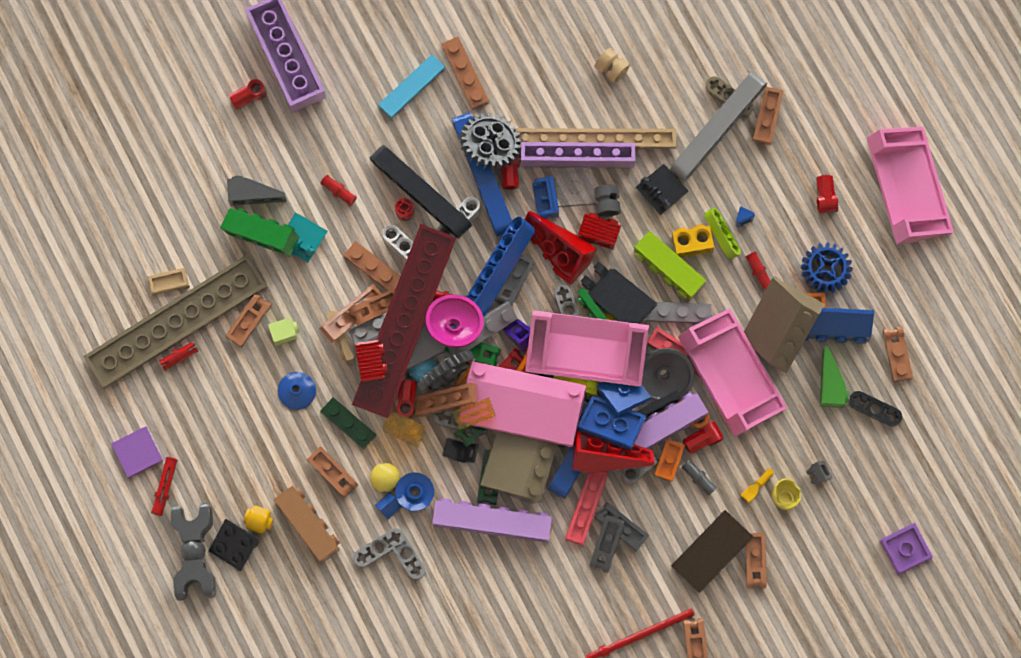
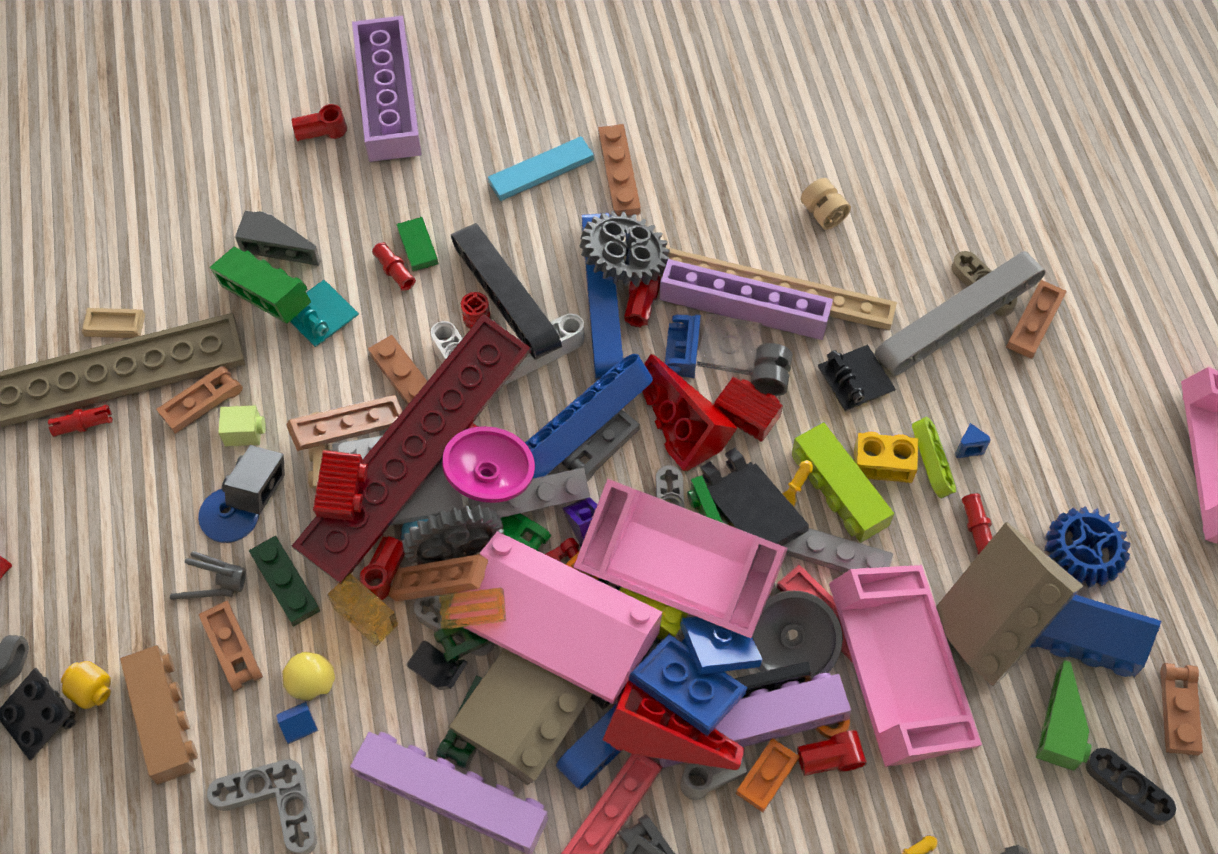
camera: 15 degrees right, 15 degrees down
(307, 365) = (254, 479): none -> brick
(315, 431) = (229, 576): none -> dark grey plant
(347, 168) = (417, 244): none -> green tile
(373, 307) = (376, 420): nougat plate -> none
(411, 482) = (334, 699): blue dish -> none
(642, 275) = (798, 480): none -> yellow piece
(698, 477) = (809, 817): dark grey pin -> none
(826, 199) = (1105, 447): red piece -> none

